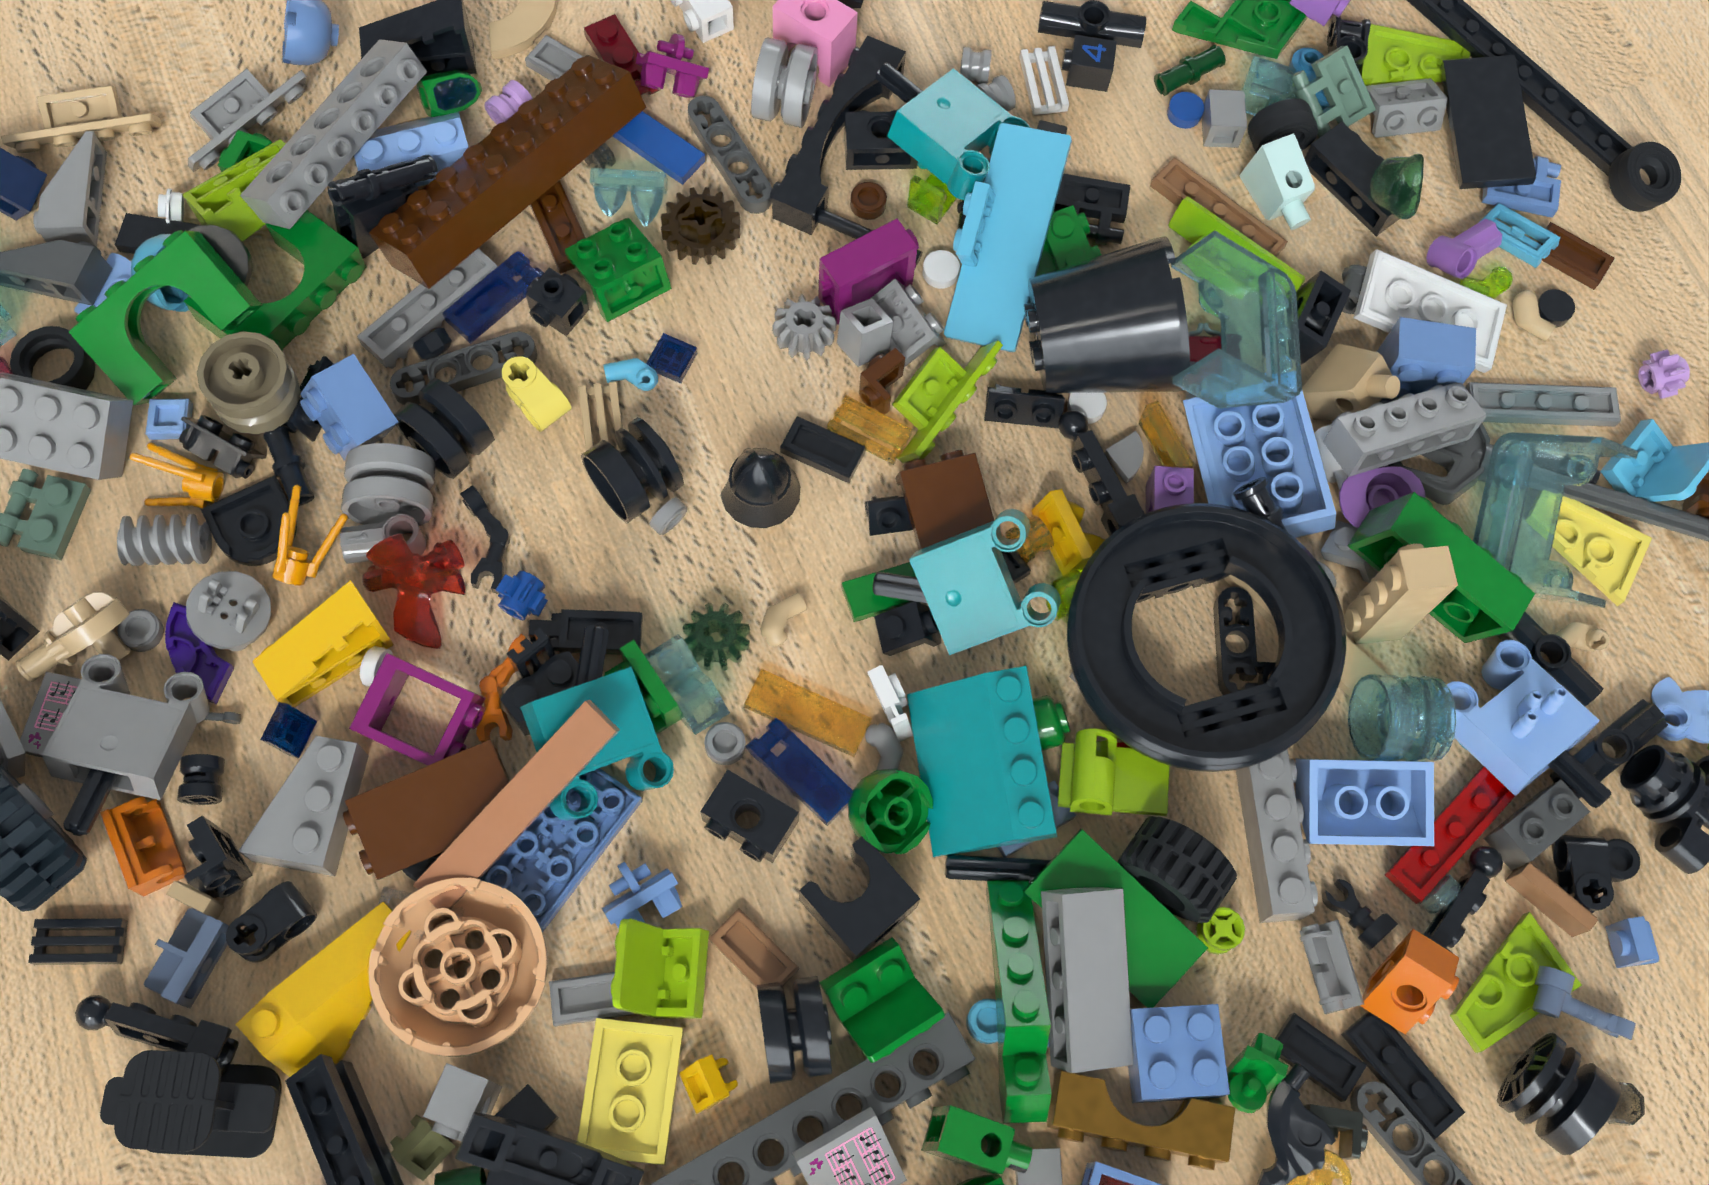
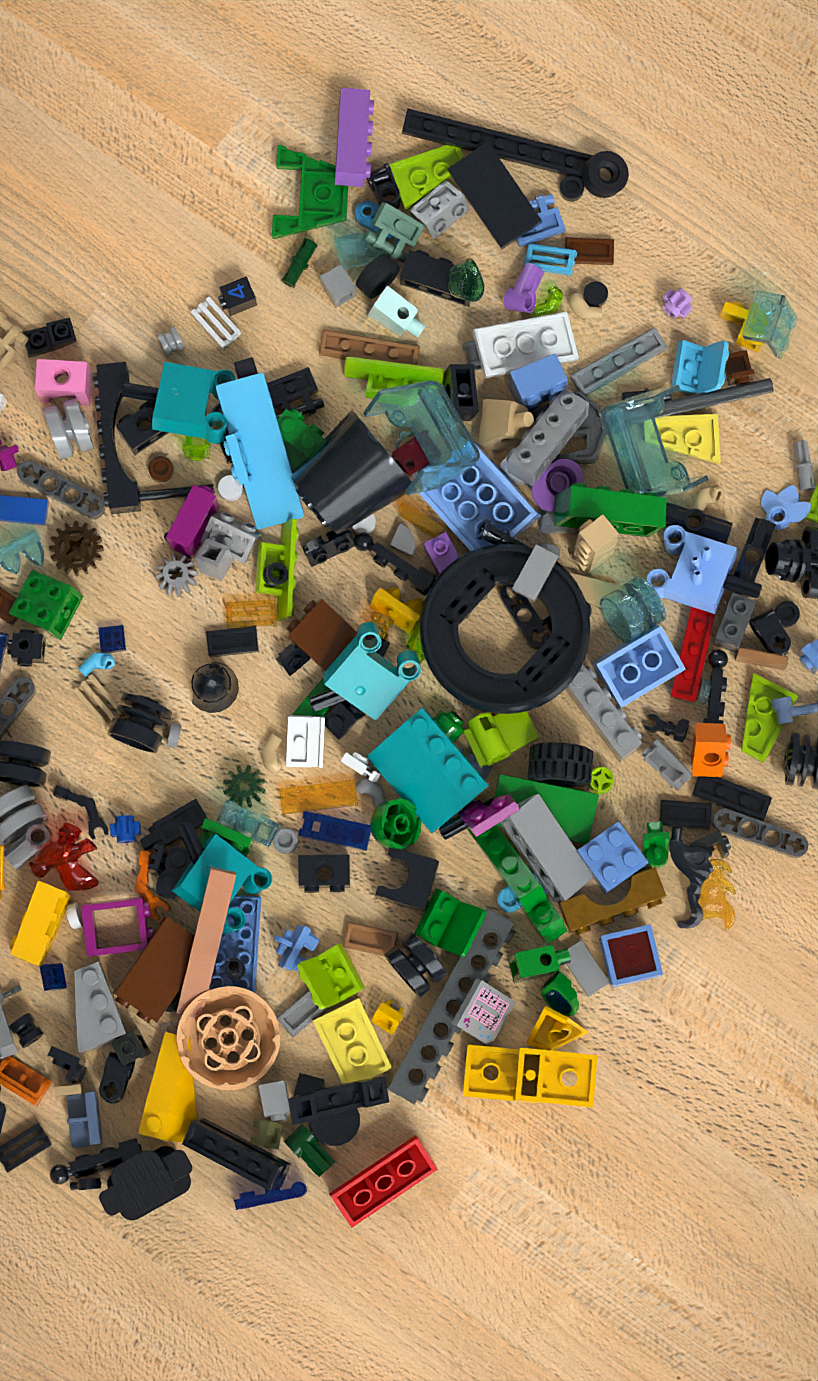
camera: 25 degrees left, 10 degrees up
(116, 1050) = (86, 1184): none -> black piece
(320, 892) = (131, 1047): none -> pearl dark grey bracket
(530, 869) = (235, 969): none -> black axle
(533, 393) = (56, 711): light yellow piece -> none
(835, 626) = (305, 741): none -> white plate
(879, 375) = (237, 576): reddish brown bracket -> none
(940, 387) = (276, 567): none -> black bush
(1000, 91) = (194, 355): light grey wheel -> none
(1017, 873) = (481, 818): none -> magenta plate
(1092, 20) = (207, 273): black piece -> none
(1185, 110) = (311, 291): blue tile -> none
(1295, 580) = (535, 573): none -> light grey tile
(1587, 175) = (571, 188): none -> black tile

